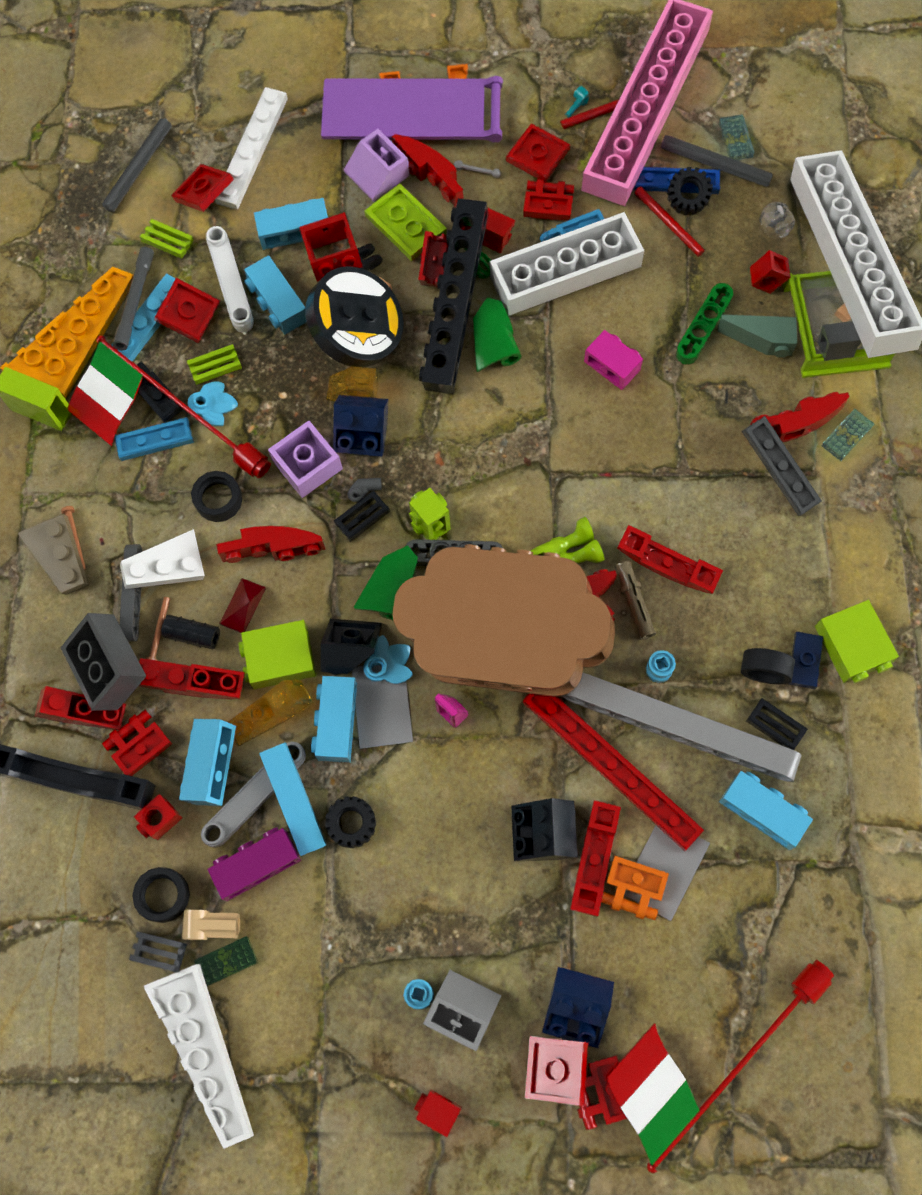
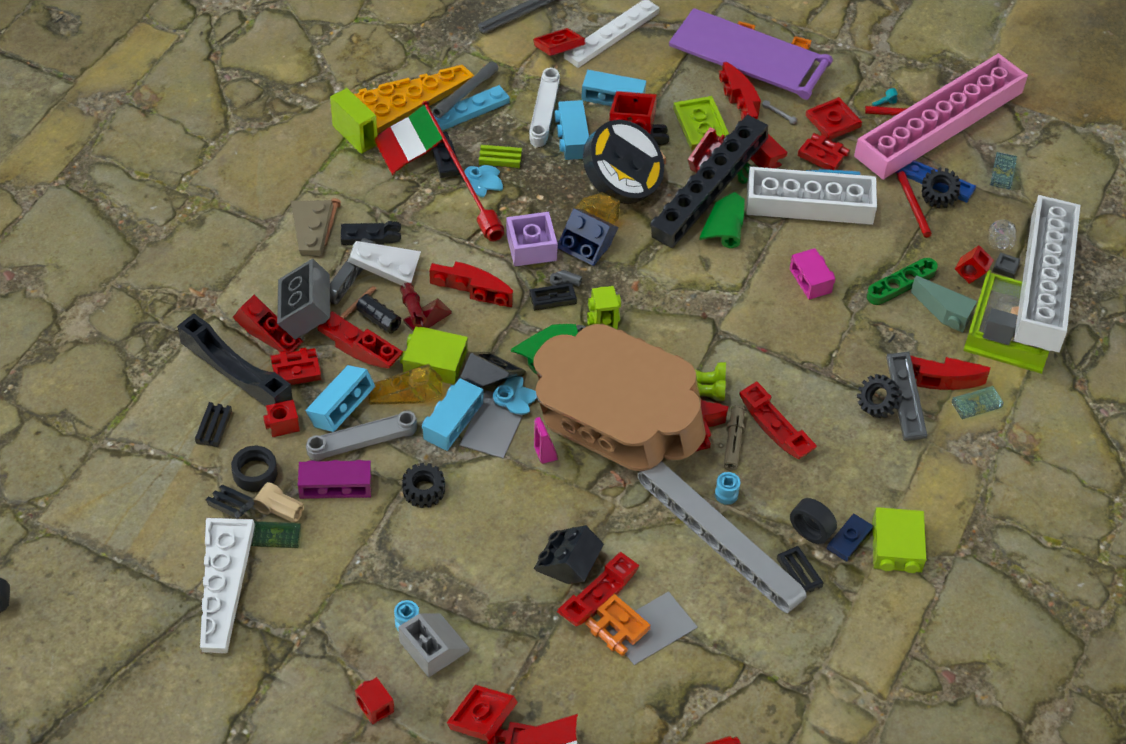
camera: 20 degrees right, 20 degrees down
(75, 861) = (205, 421): none -> black tile
(125, 531) = (372, 231): none -> black hinge
(149, 231) = (515, 62): lime tile -> none
(154, 439) = (426, 185): dark azure tile -> none
(187, 310) = (500, 113): red tile -> none
(205, 482) = (450, 225): black tyre -> none
(218, 599) = (411, 301): none -> dark red pin
(293, 799) = (389, 449): medium azure tile -> none
(377, 165) = (701, 77): lavender slope -> none
(578, 1007) = (527, 679): dark blue slope -> none
(615, 769) = (651, 543): red tile -> none
(716, 160) = (977, 179): dark grey axle -> none
(757, 465) = (888, 404): none -> black tyre
(766, 809) = (755, 619): medium azure brick -> none
(796, 252) = (1006, 265): none -> dark grey tile

